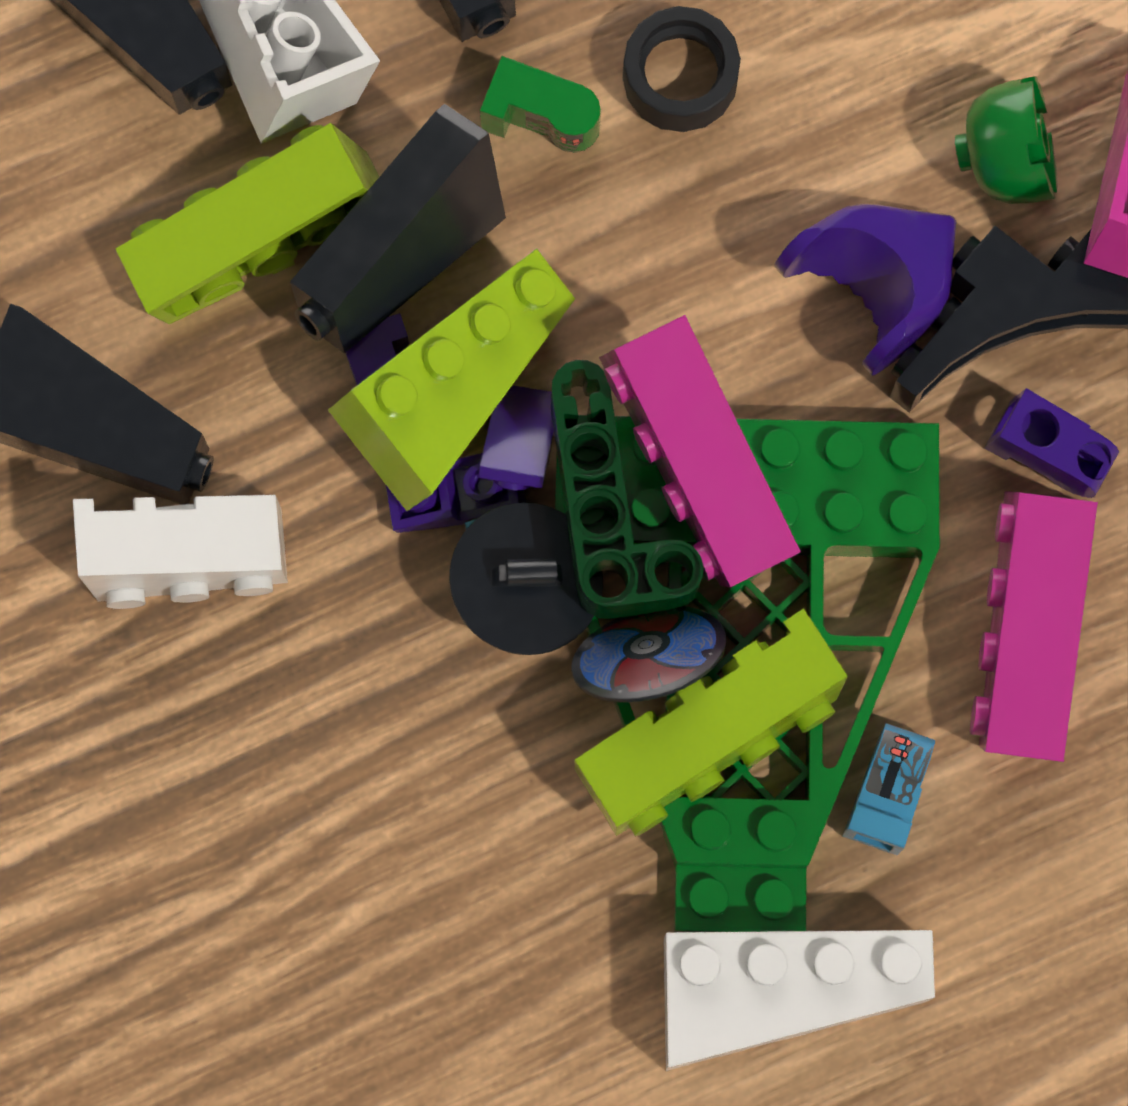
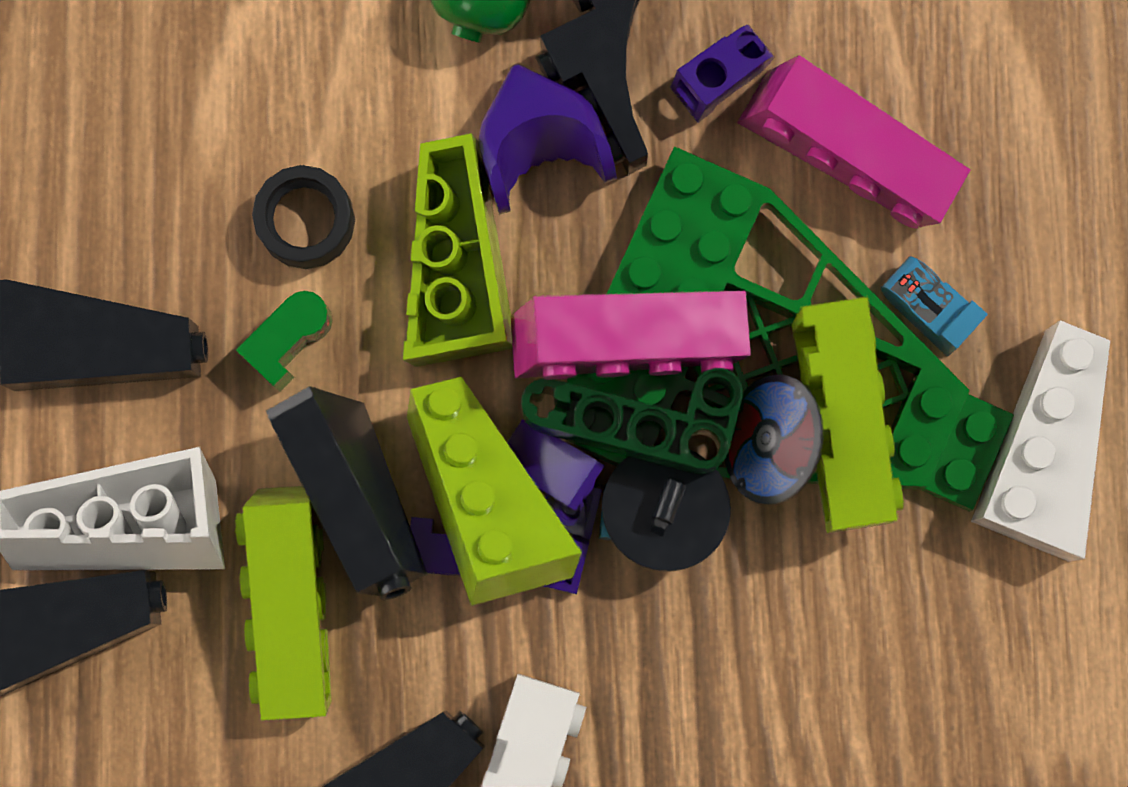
camera: 65 degrees left, 5 degrees up
(704, 242) = (458, 277): none -> lime wedge

